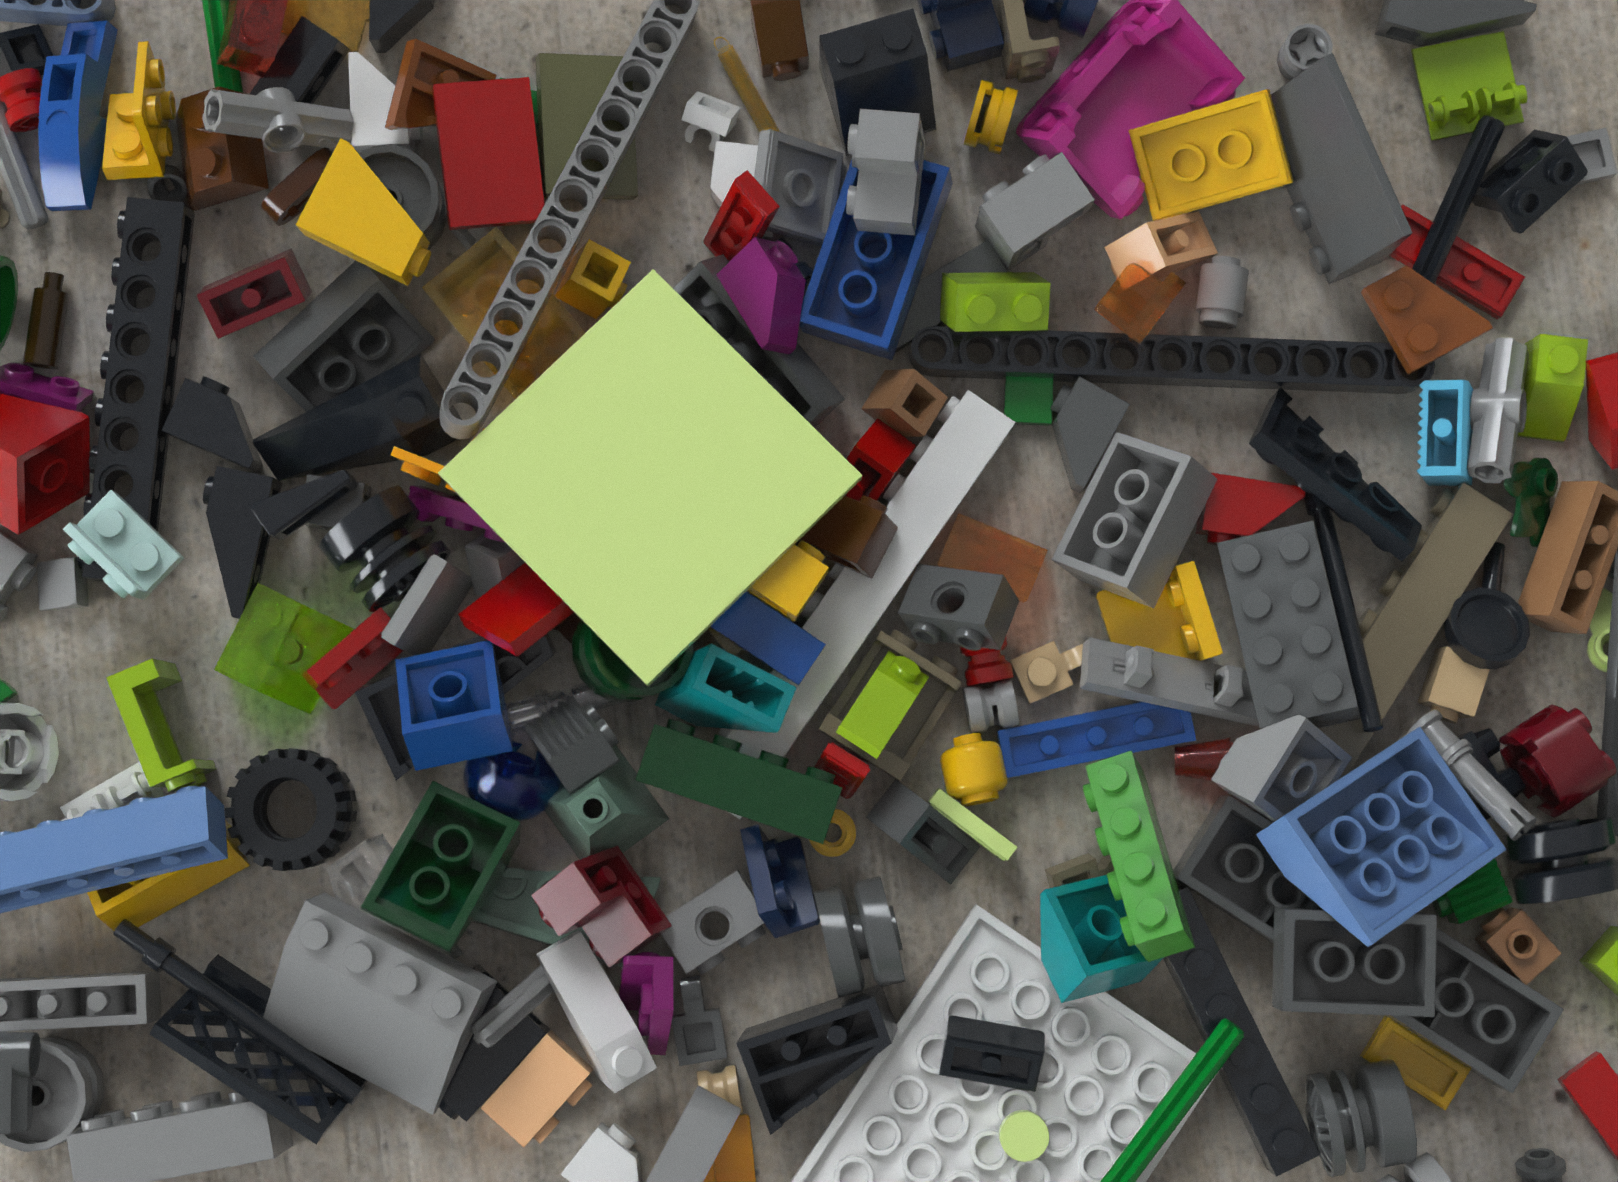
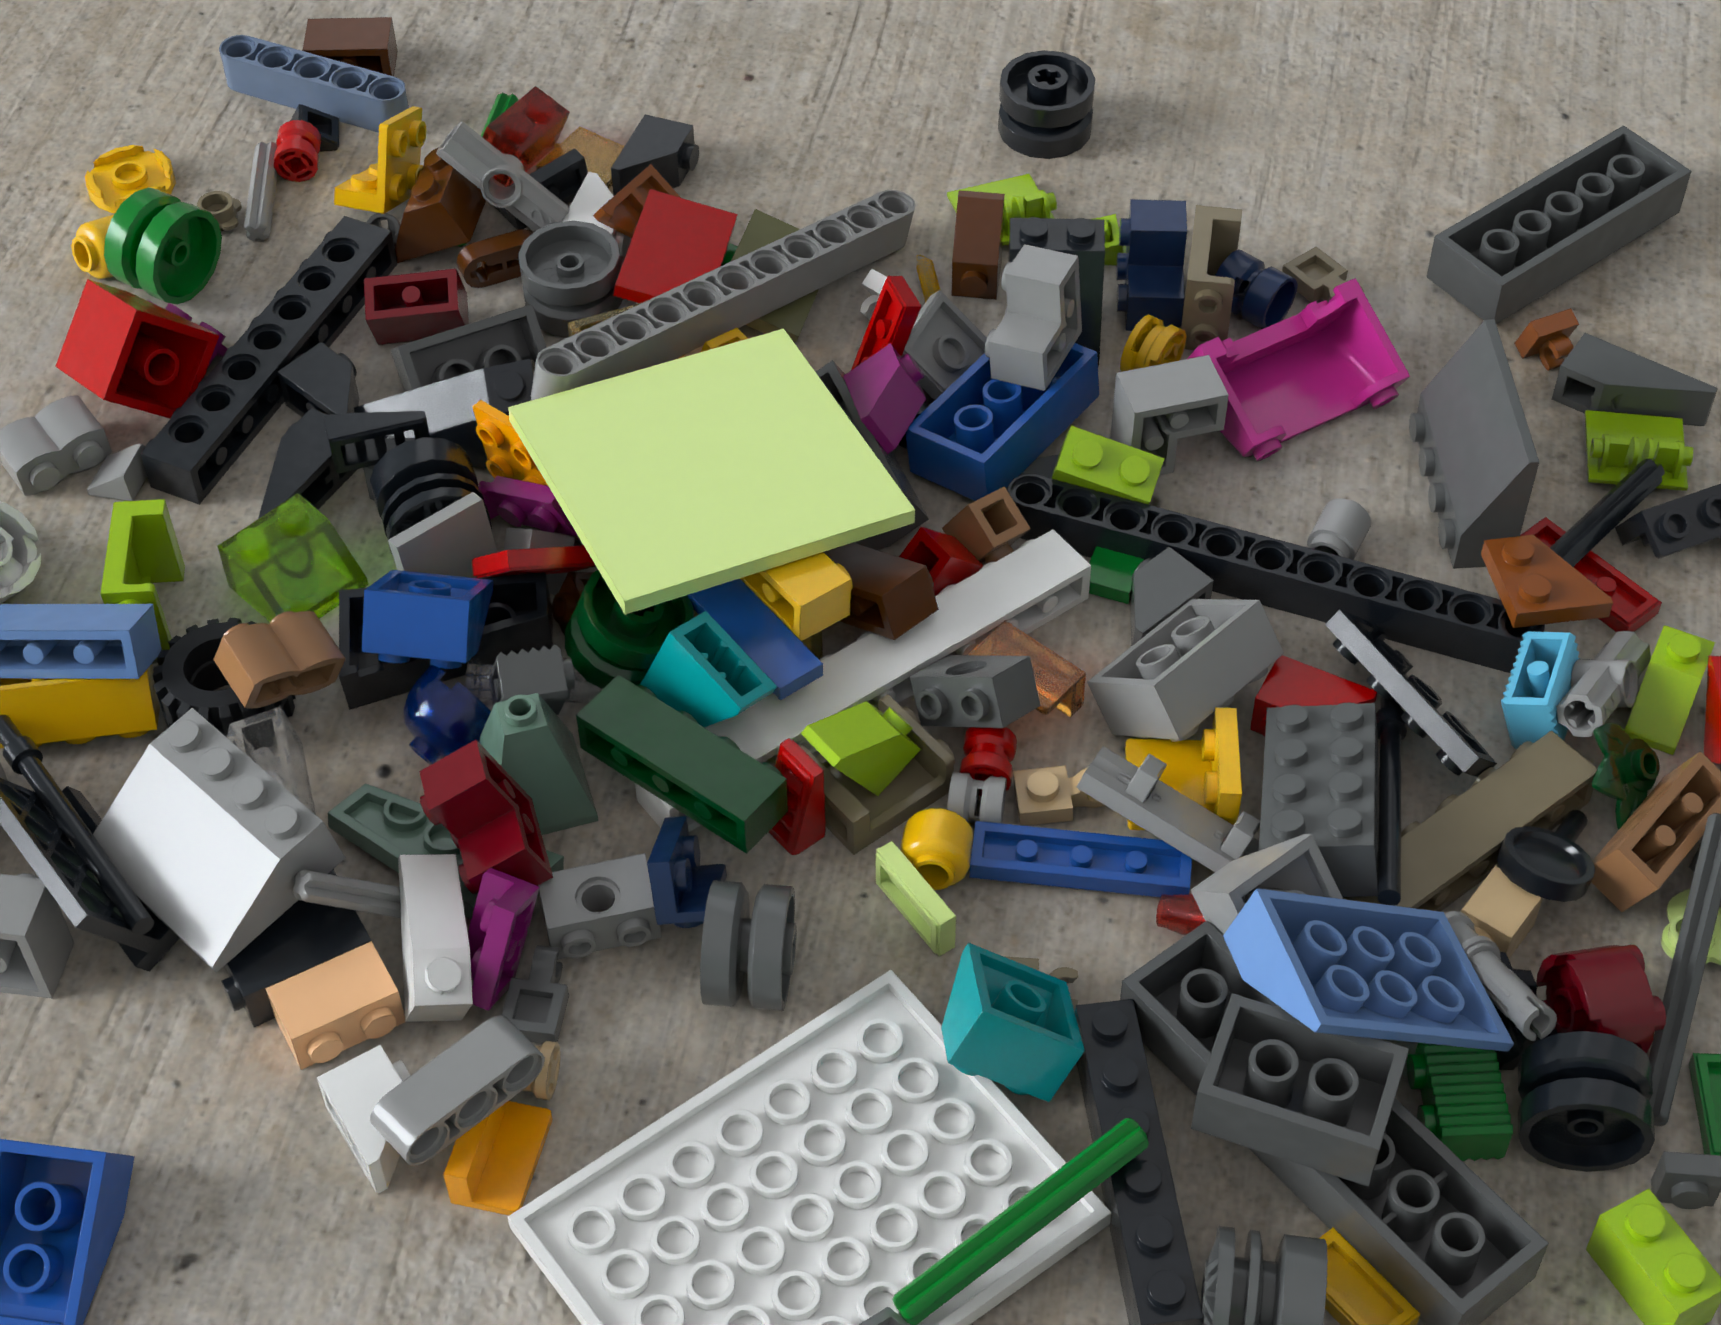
camera: 20 degrees right, 35 degrees down
(46, 323) = (224, 293): dark brown cylinder -> none
(69, 116) = (323, 165): blue slope -> none
(123, 546) = (191, 435): light aqua bracket -> none
(343, 799) = (278, 658): none -> medium nougat brick
(352, 661) = (340, 568): red bracket -> none
(363, 219) = (537, 250): yellow slope -> none
(443, 867) = (351, 741): dark green slope -> none
(812, 1050) = (652, 1043): black wedge -> none
(846, 840) = (762, 858): yellow plate -> none
(923, 831) = (861, 891): dark grey slope -> none
(992, 1053) = (849, 1113): black slope -> none
(1023, 1135) = (854, 1202): yellowish green tile -> none
(1138, 300) = (1256, 503): clear orange panel -> none
(1139, 857) = (1084, 949): bright green brick -> none
(1163, 245) = (1282, 484): light nougat slope -> none
(1211, 155) = (1359, 423): yellow tile -> none
(1516, 944) = (1519, 1181): medium nougat brick -> none

